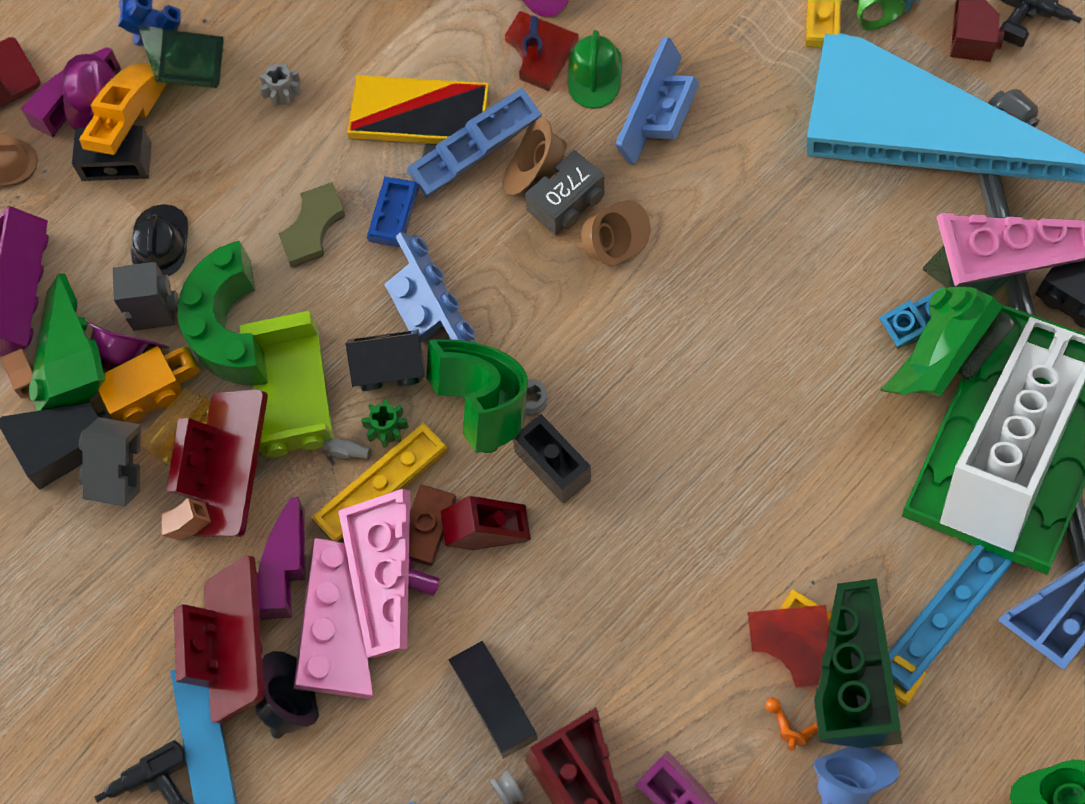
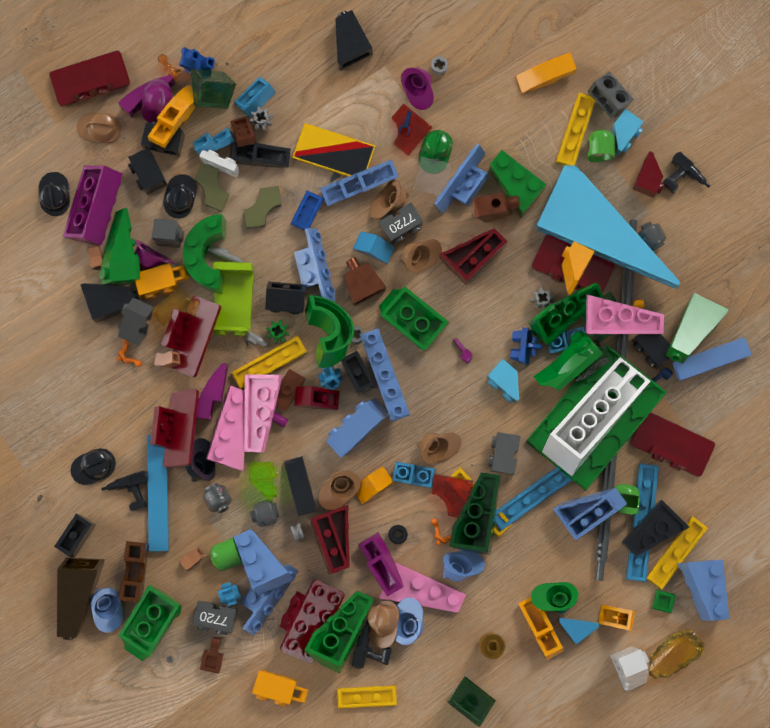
camera: 10 degrees right, 15 degrees up
(72, 759) = (93, 466): none -> black piece
(93, 35) = (169, 69): none -> clear orange piece
(93, 208) = (147, 170): none -> black brick
(96, 531) = (138, 363): none -> orange piece
(193, 141) = (213, 143): none -> dark azure slope
(205, 200) = (208, 179): none -> olive tile
(219, 166) = (224, 165): none -> white plate
(249, 315) = (223, 254): none -> light grey piece
(251, 107) = (243, 131): none -> copper plate
(268, 47) = (255, 96): none -> dark azure slope
(287, 141) = (260, 155): none -> black slope
(331, 760) = (217, 498): none -> dark grey head
(413, 700) = (262, 478): none -> clear neon green slope
(433, 767) = (264, 513): none -> dark grey head
(502, 480) = (330, 378): none -> dark azure gear
(521, 303) = (362, 281): none -> copper torso
(527, 242) = (374, 247): none -> dark azure slope
(570, 683) = (339, 489): none -> medium nougat piece
(573, 558) = (357, 426): none -> medium blue wedge
(599, 107) = (432, 175): none -> clear piece
(604, 447) = (384, 375): none -> medium blue slope
(631, 341) = (413, 317): none -> green slope
(631, 663) = (373, 484): none -> light orange slope
(708, 212) = (472, 256): none -> dark red wedge
(708, 625) = (414, 474): none -> dark azure slope
(708, 735) = (402, 529): none -> black plate
(724, 121) = (488, 207): none -> copper torso
(742, 557) = (439, 446): none -> medium nougat piece
(745, 382) = (467, 355): none -> magenta hand
(749, 81) = (516, 180): none -> green wedge
(832, 410) = (506, 379): none -> medium azure slope
(842, 329) = (527, 346): none -> blue hips
(857, 249) = (541, 293): none -> light grey gear
(868, 540) = (504, 449): none -> dark grey brick
(887, 193) = (550, 261): none -> dark red bracket
(896, 272) = (562, 314): none -> green wedge
(897, 175) = (575, 262): none -> light orange slope

